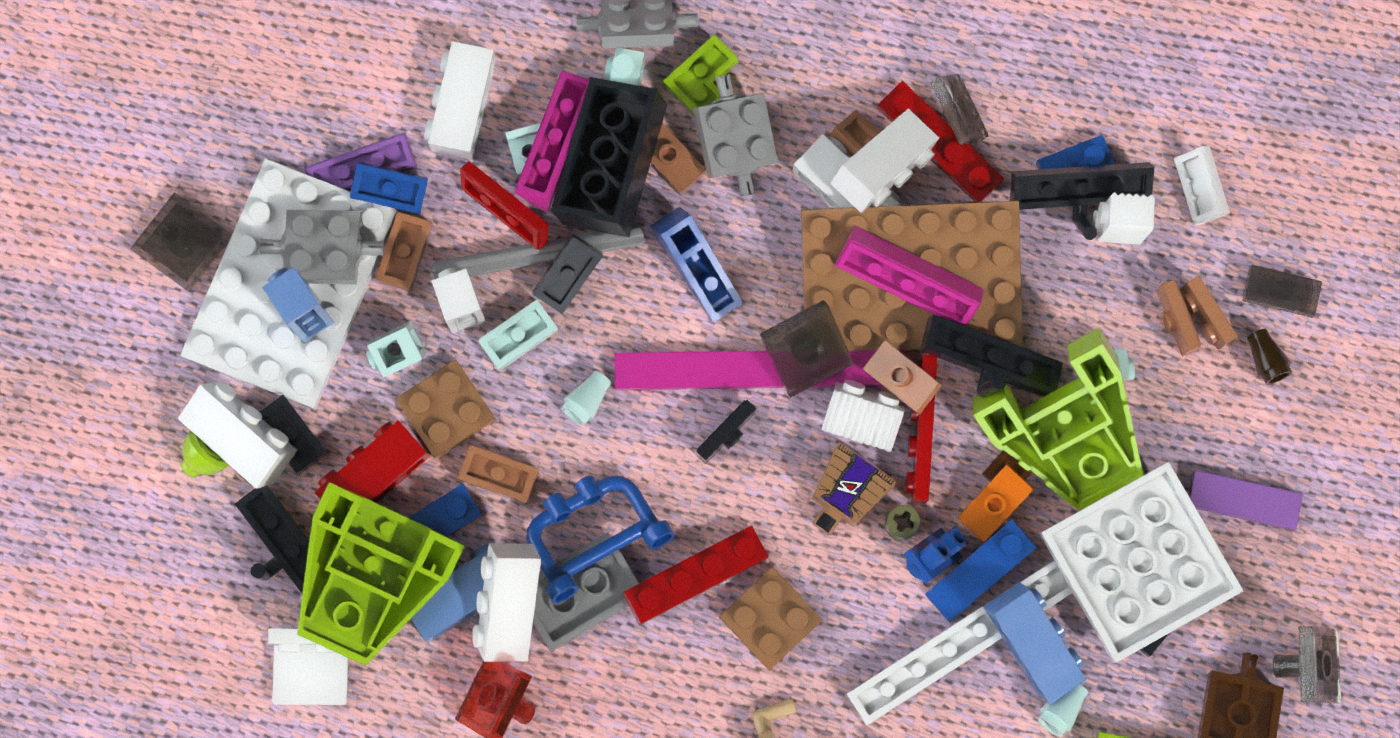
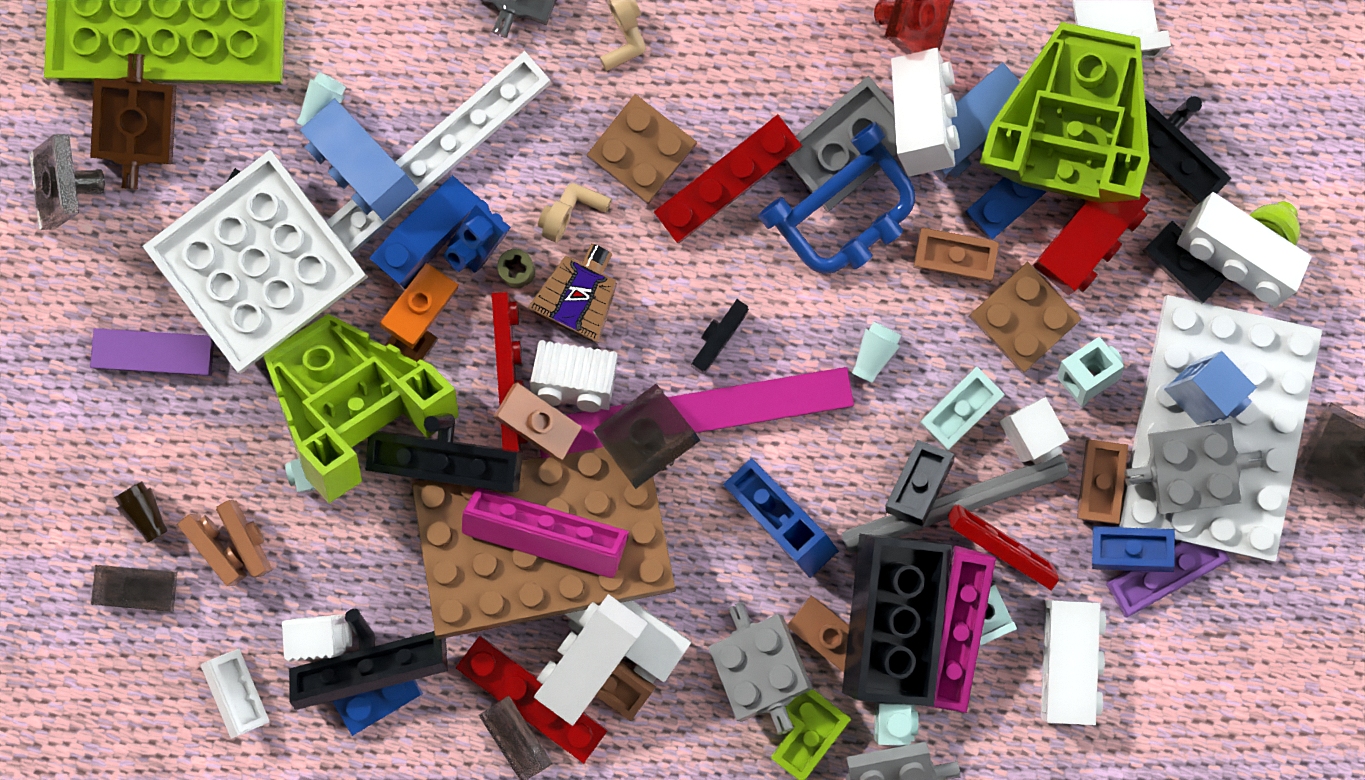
camera: 175 degrees right, 5 degrees up
(859, 564) = (556, 218): none -> tan plate

